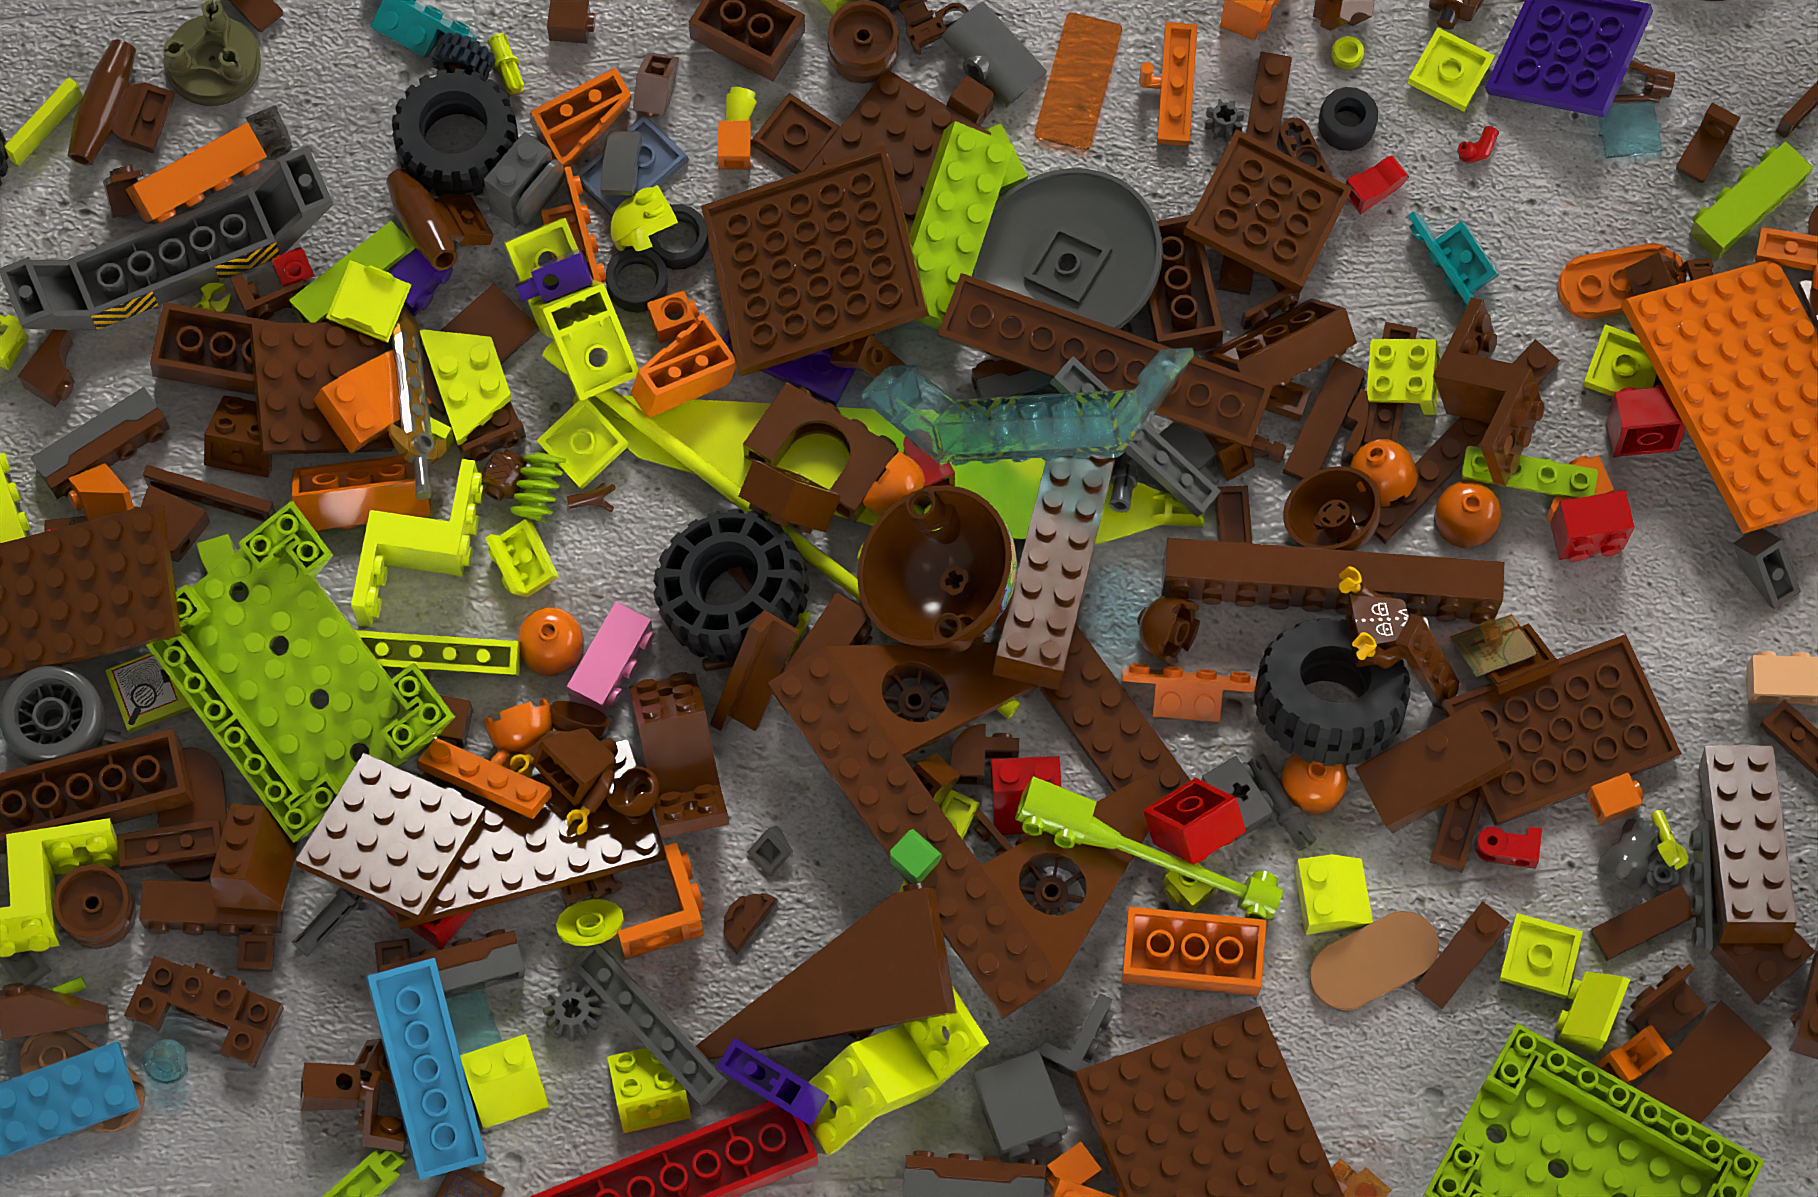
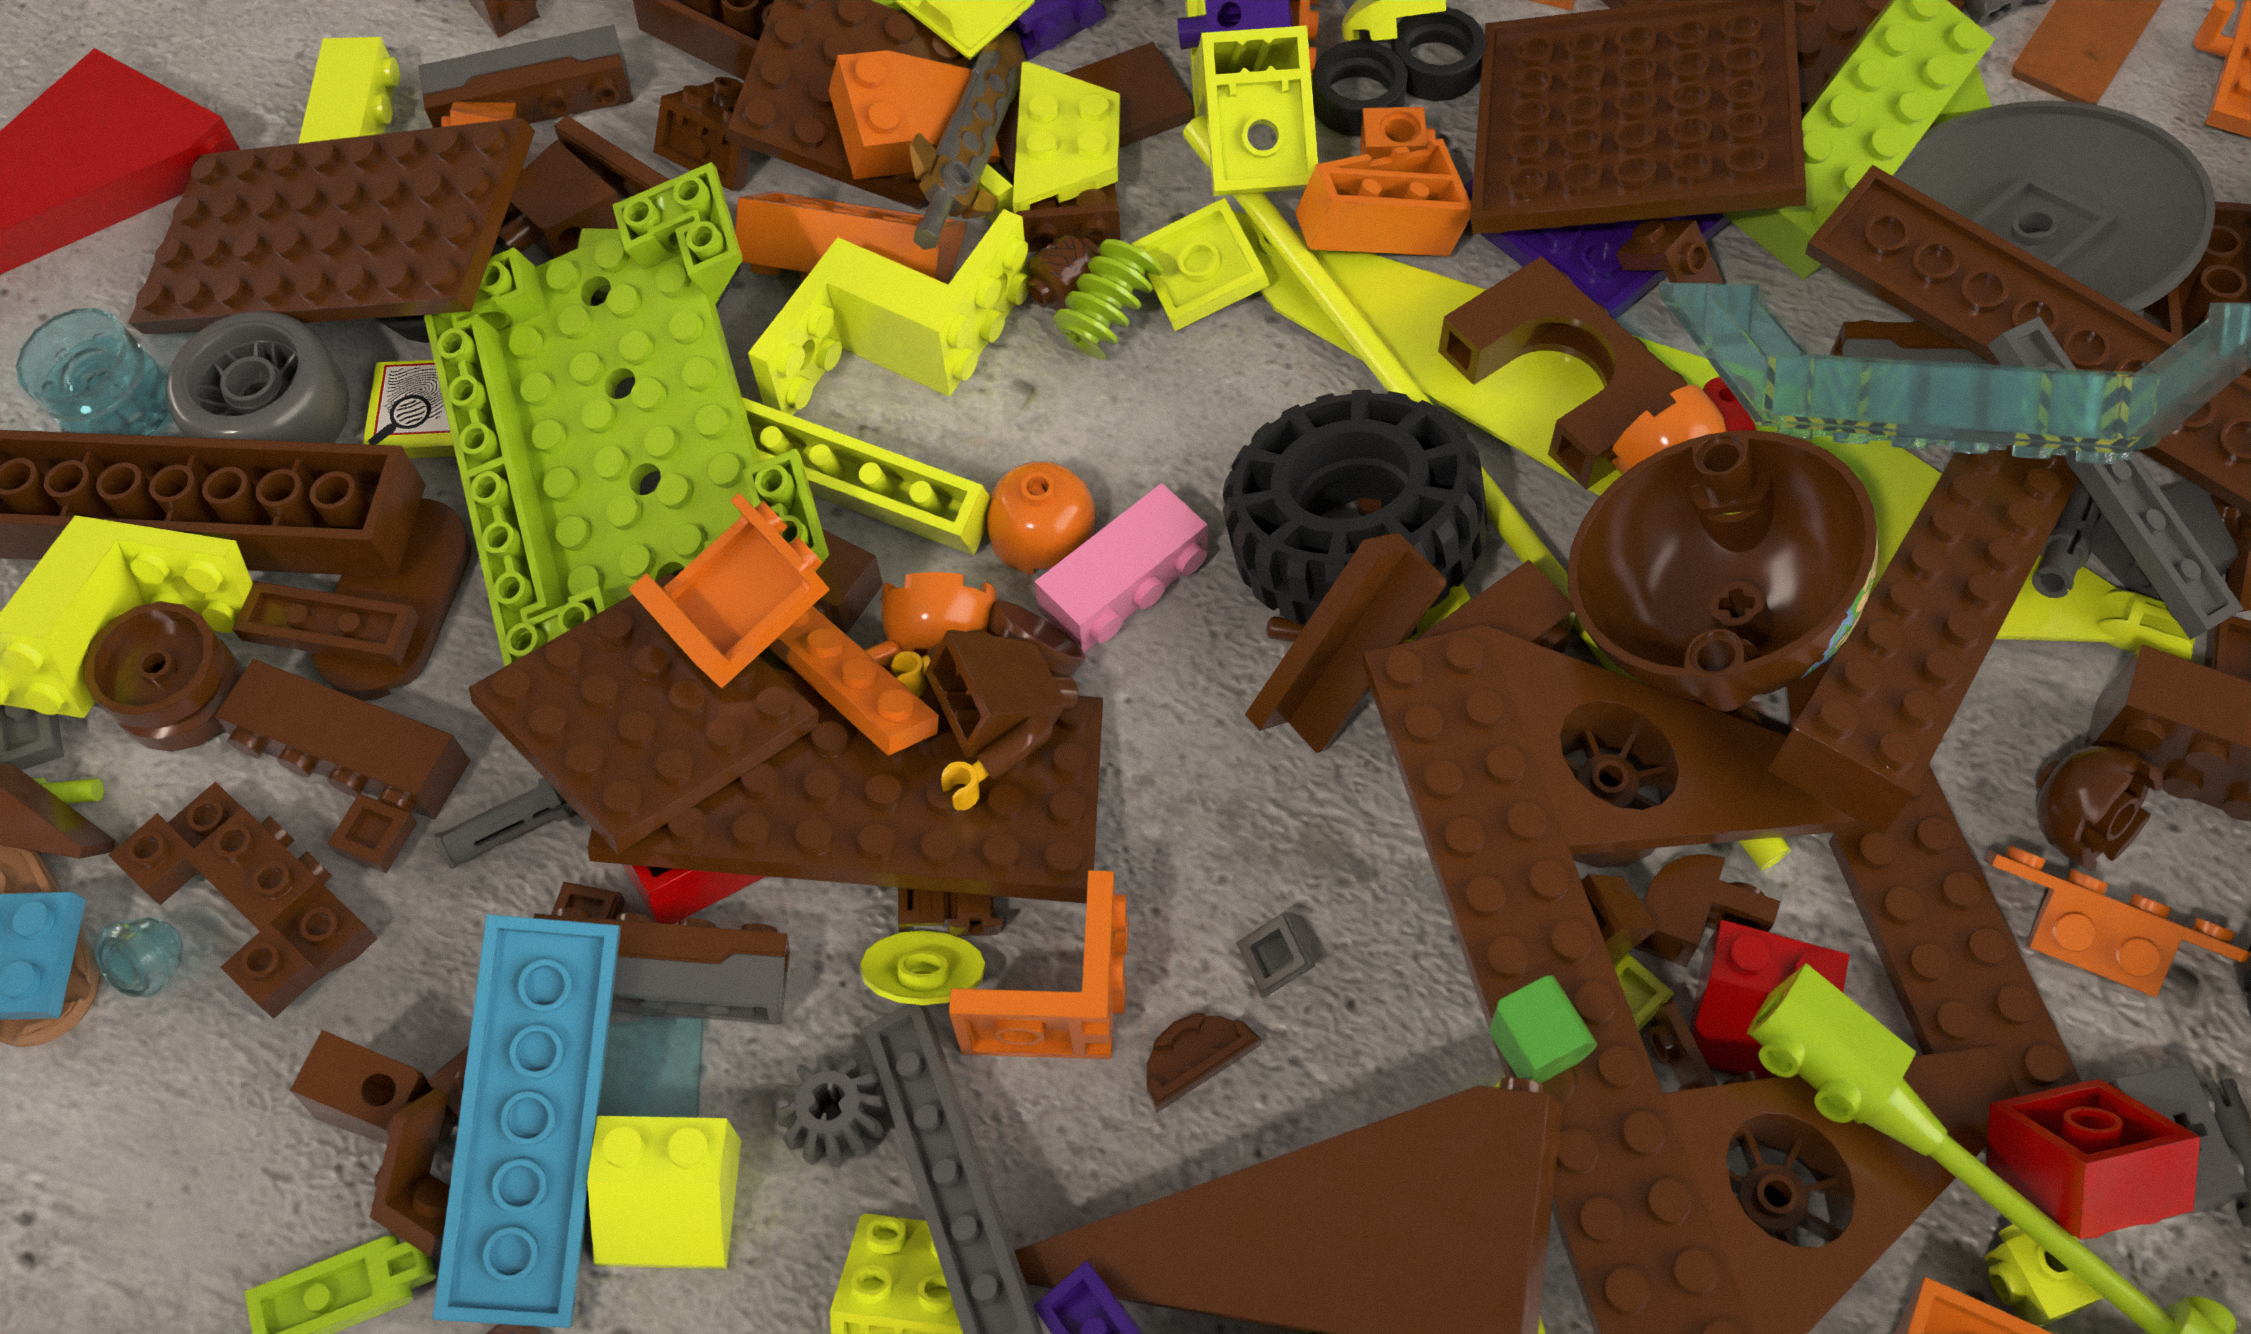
camera: 25 degrees right, 10 degrees down
(252, 861) = (412, 681): reddish brown slope -> none
(418, 758) = (736, 593): none -> orange panel
(522, 559) = (1044, 392): neon yellow bracket -> none
(592, 497) = (1184, 344): reddish brown bar -> none
(634, 792) = (1075, 770): reddish brown hair -> none
(679, 753) = (1172, 743): reddish brown bracket -> none
(788, 497) = (1496, 401): reddish brown brick -> none

